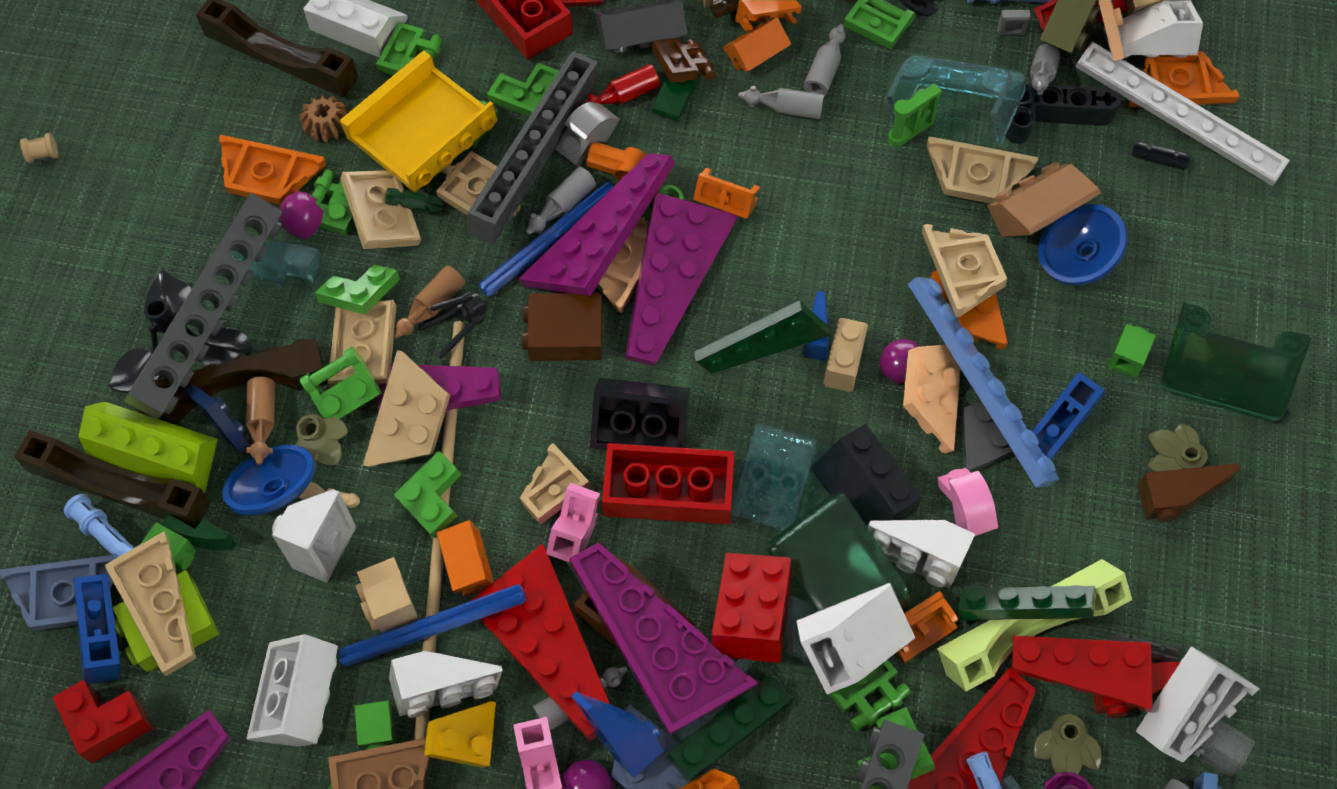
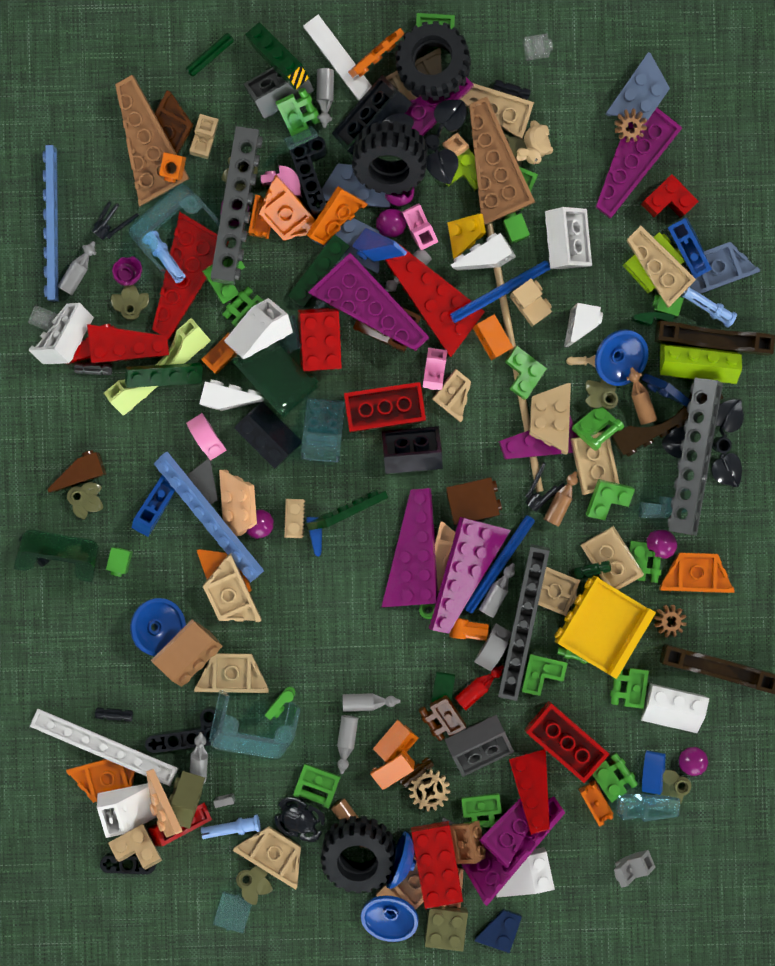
camera: 165 degrees right, 25 degrees up
(725, 195) = (392, 617): orange hinge -> none

